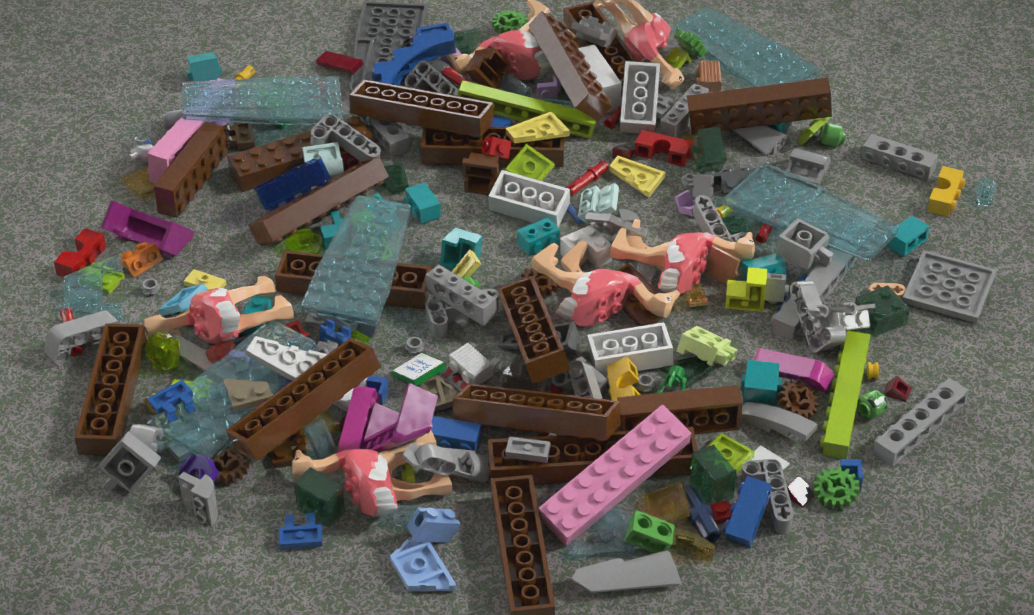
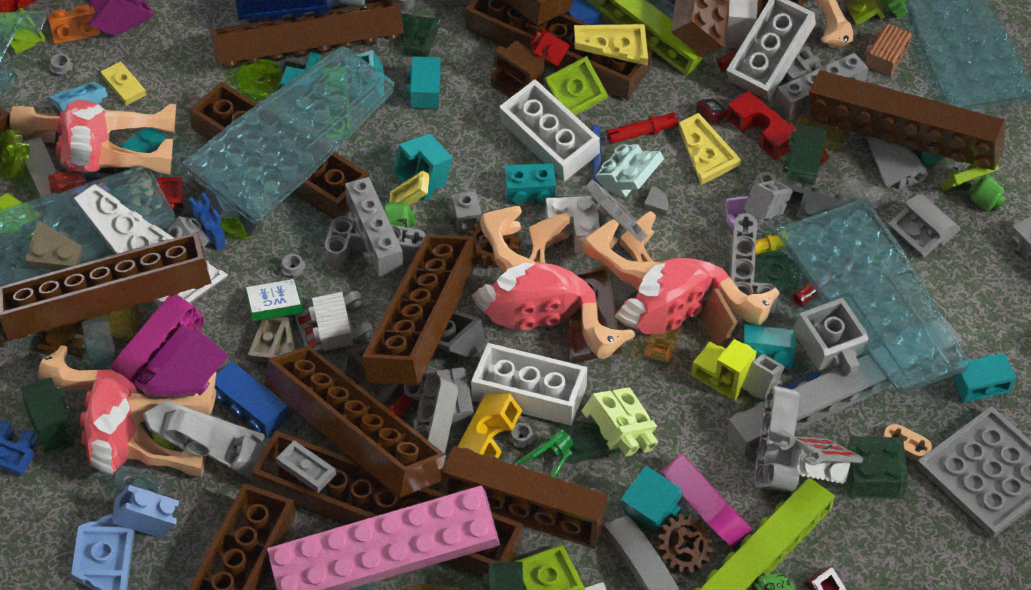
camera: 25 degrees right, 10 degrees up
(380, 385) = (212, 305): blue panel -> none
(508, 268) = (465, 211): none -> light grey brick
(872, 370) = (808, 545): yellow bush -> none

